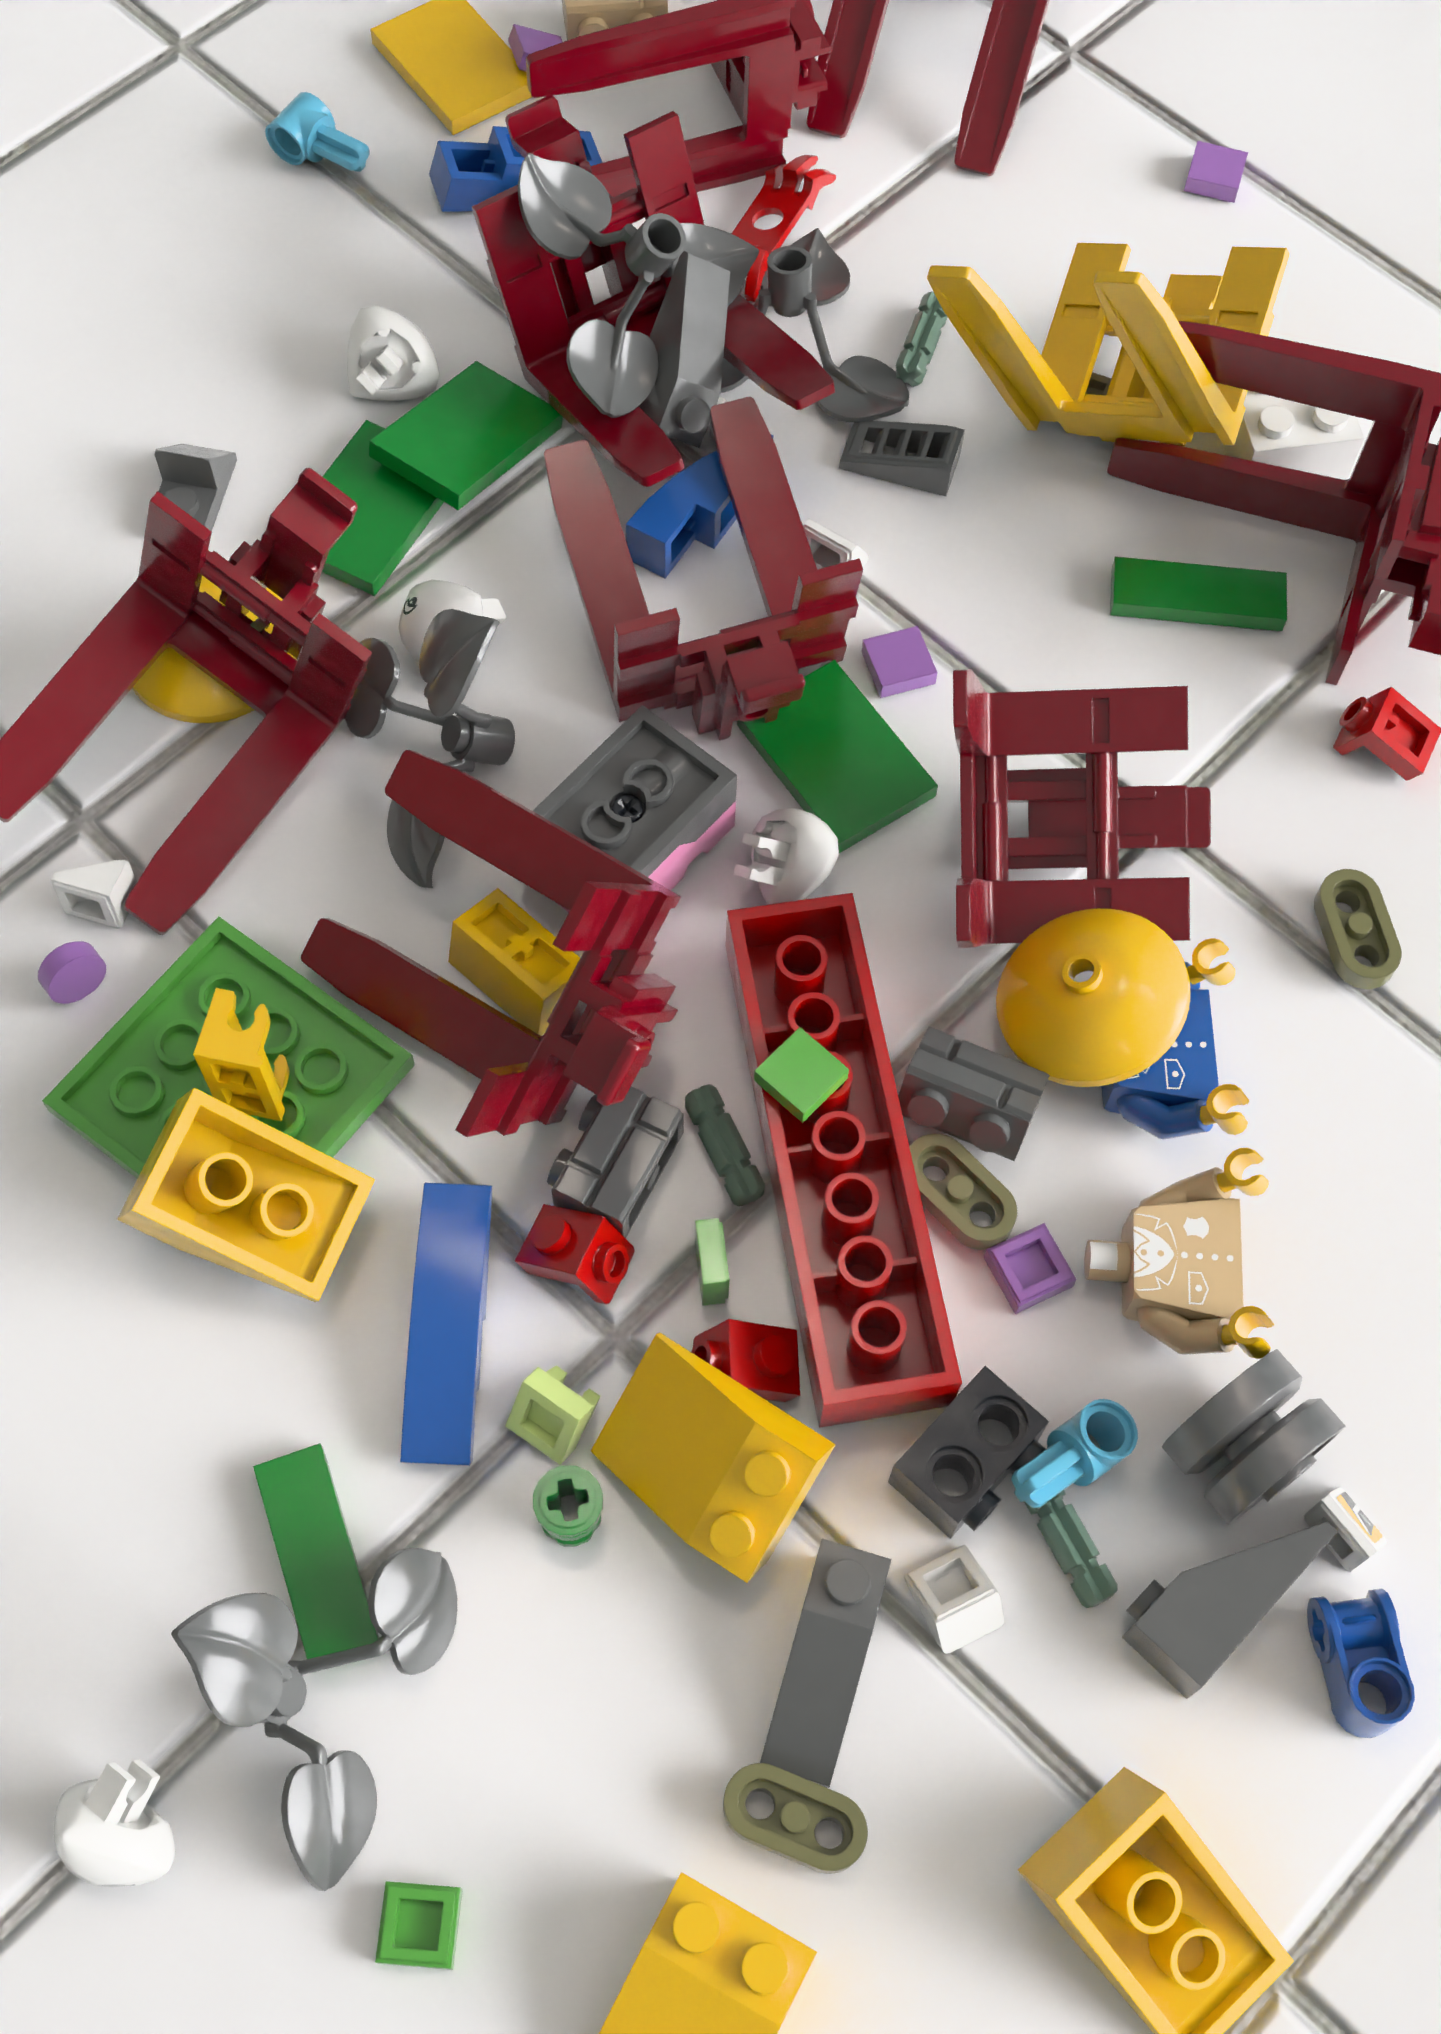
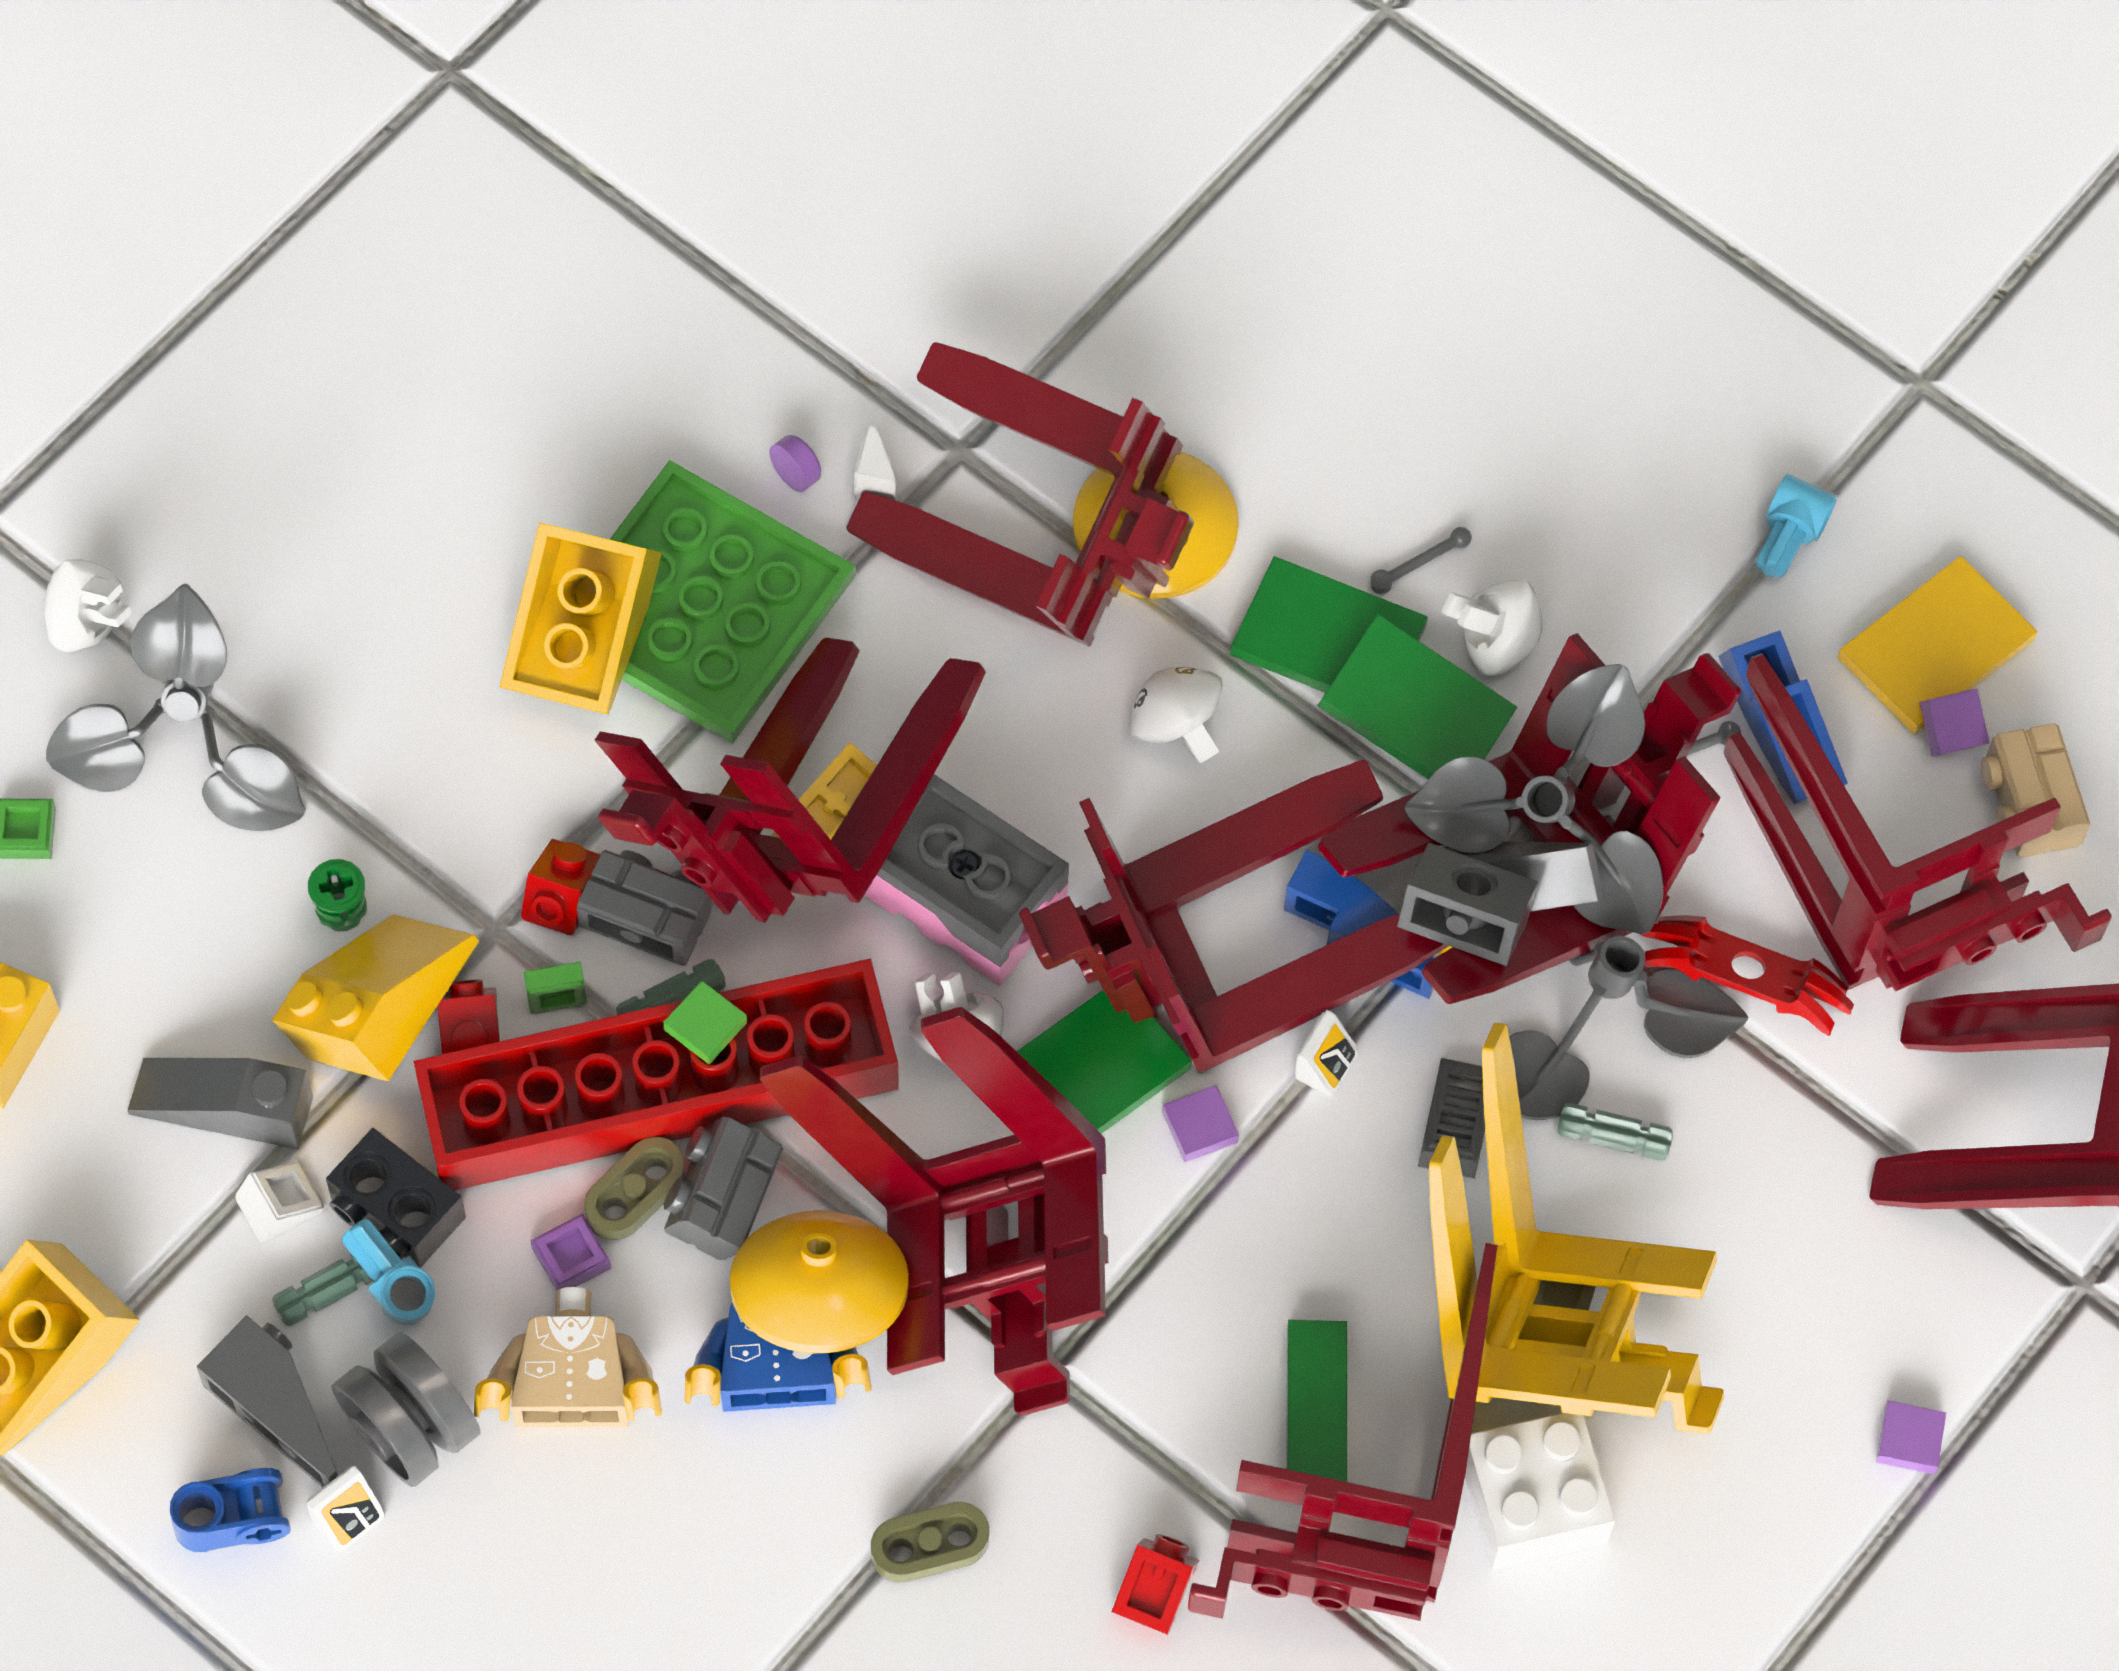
camera: 85 degrees right, 0 degrees up
(195, 479) = (1331, 480): dark grey slope -> none
(236, 1060) = (692, 581): yellow hinge -> none
(312, 458) = (1382, 580): none -> dark grey hinge
(315, 1552) = (307, 716): green tile -> none
(446, 1324) = (491, 787): blue slope -> none
(448, 664) = (1059, 740): dark grey plant -> none
(551, 1413) = (414, 875): yellowish green tile -> none
(731, 361) = (1467, 904): none -> dark grey brick
(797, 1811) = (98, 1084): olive plate -> none

